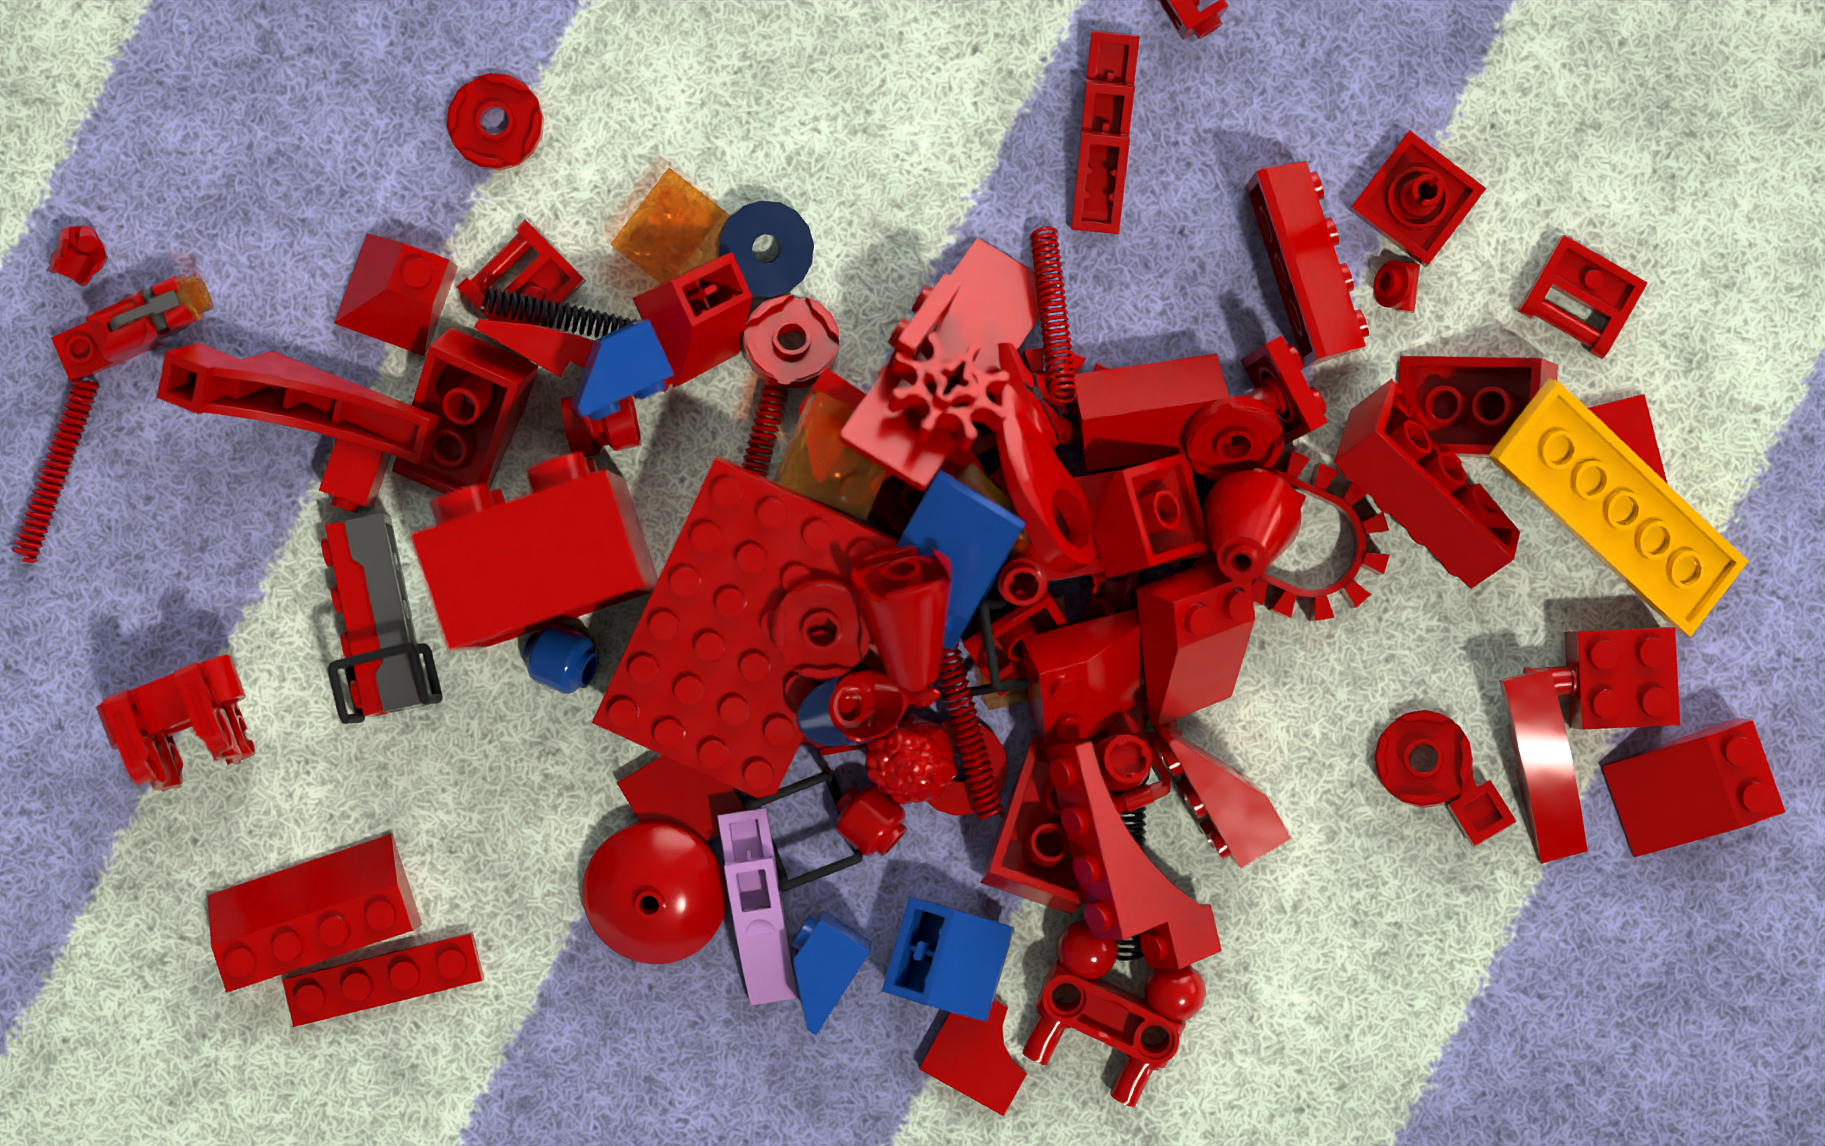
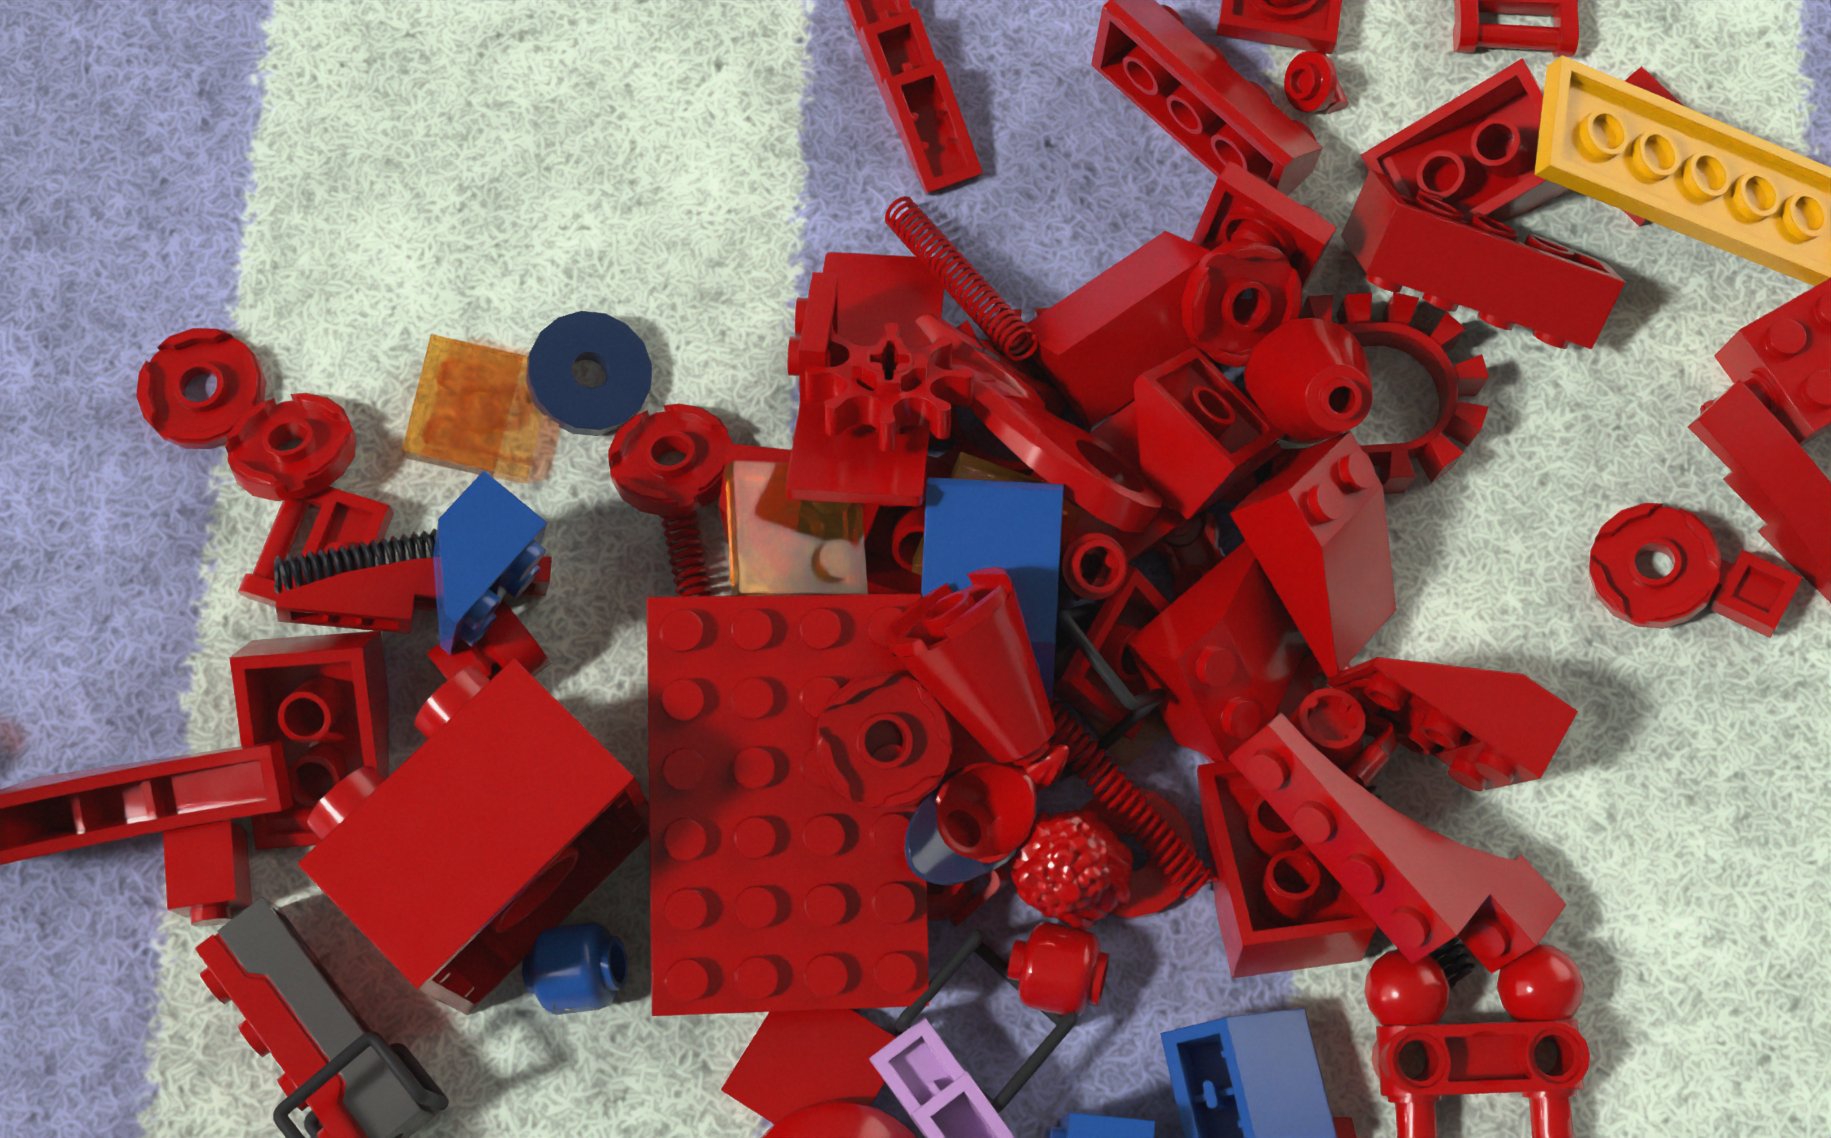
camera: 30 degrees left, 15 degrees down
(396, 293) = (167, 632): red slope -> none
(536, 225) = (298, 472): none -> red tile
(698, 316) = (553, 463): red slope -> none

